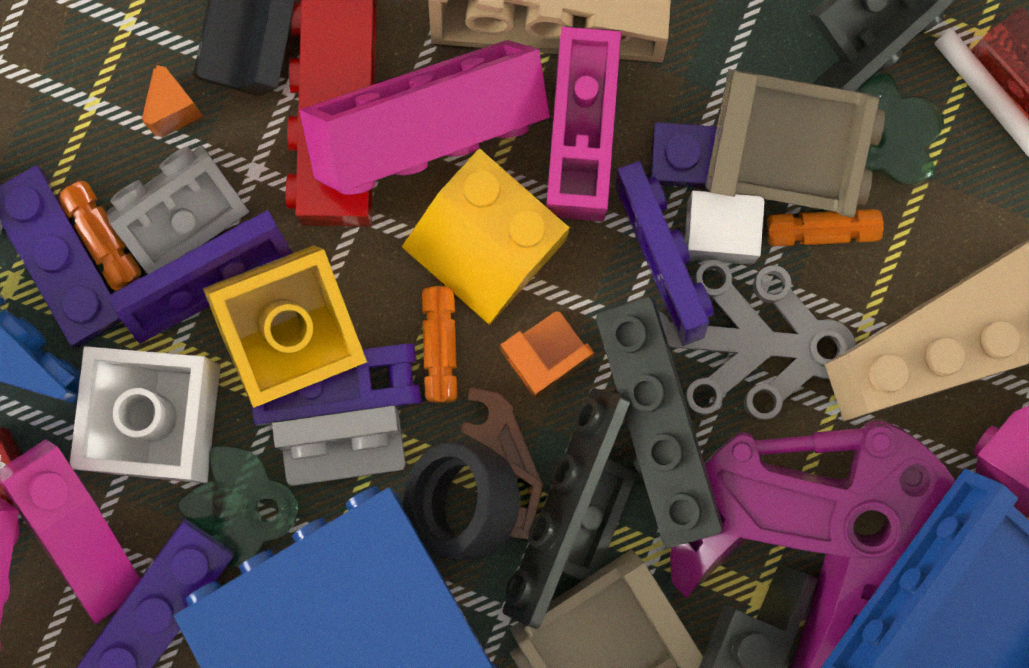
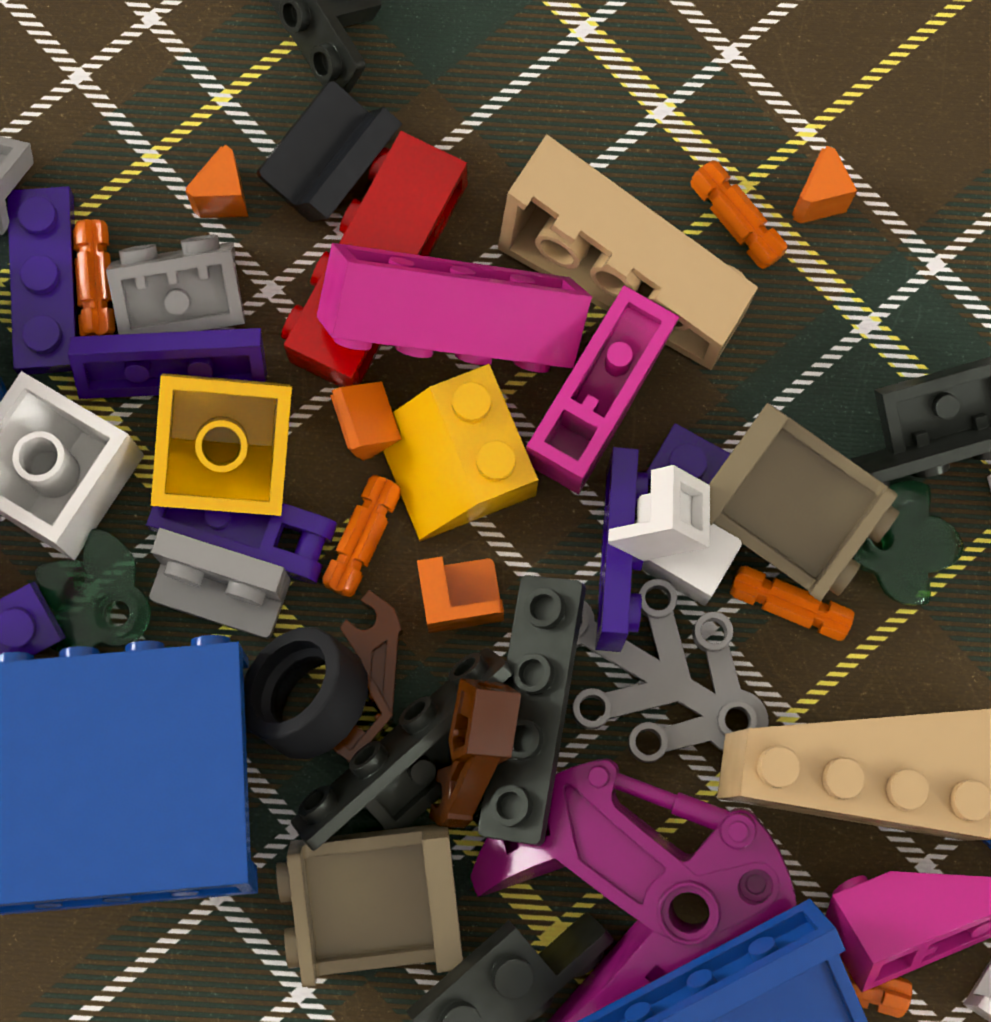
camera: 25 degrees right, 5 degrees down
(395, 243) = (365, 418): none -> orange slope
(631, 471) = (478, 741): none -> reddish brown piece
(696, 208) = (669, 518): none -> white panel

